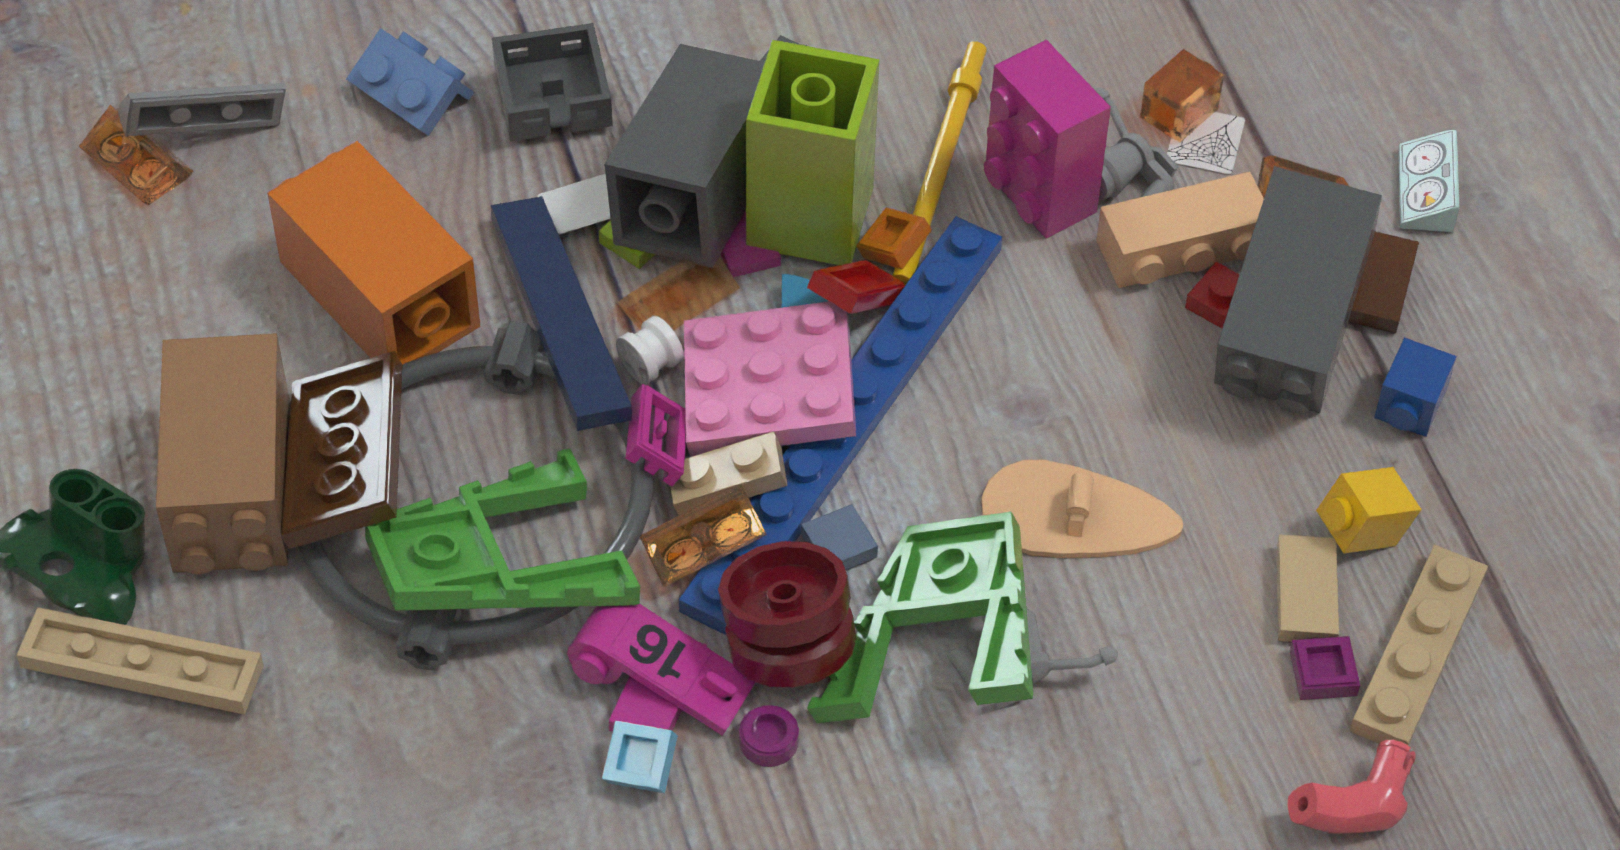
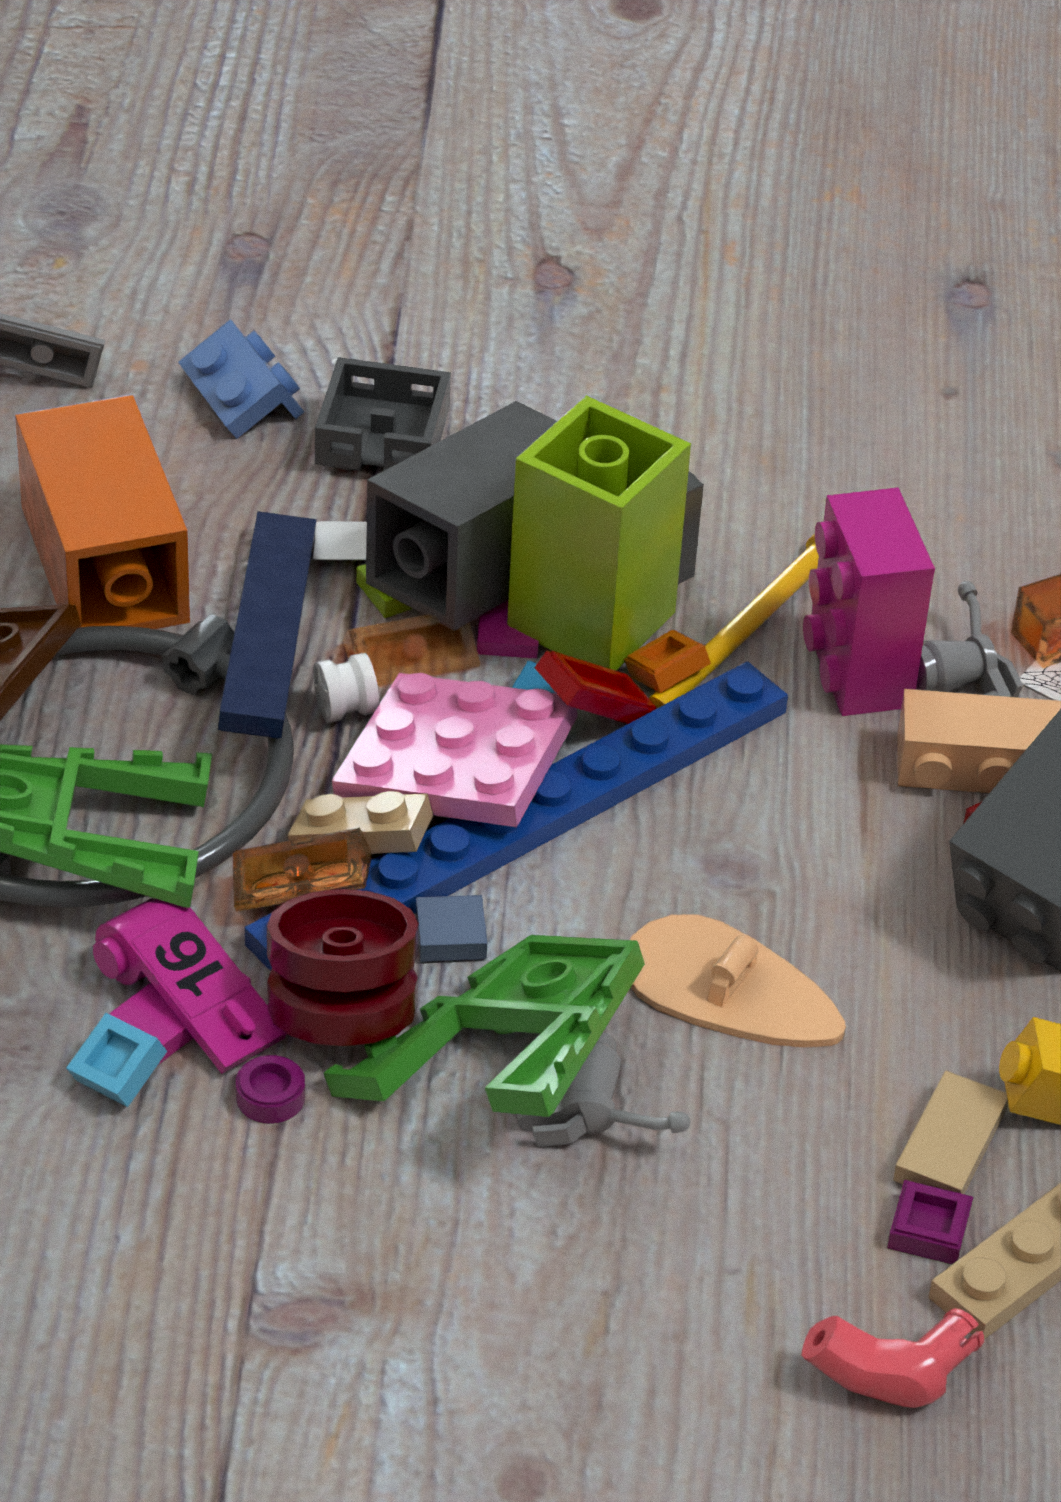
camera: 20 degrees right, 10 degrees down
(648, 429) = (287, 777): dark pink tile -> none

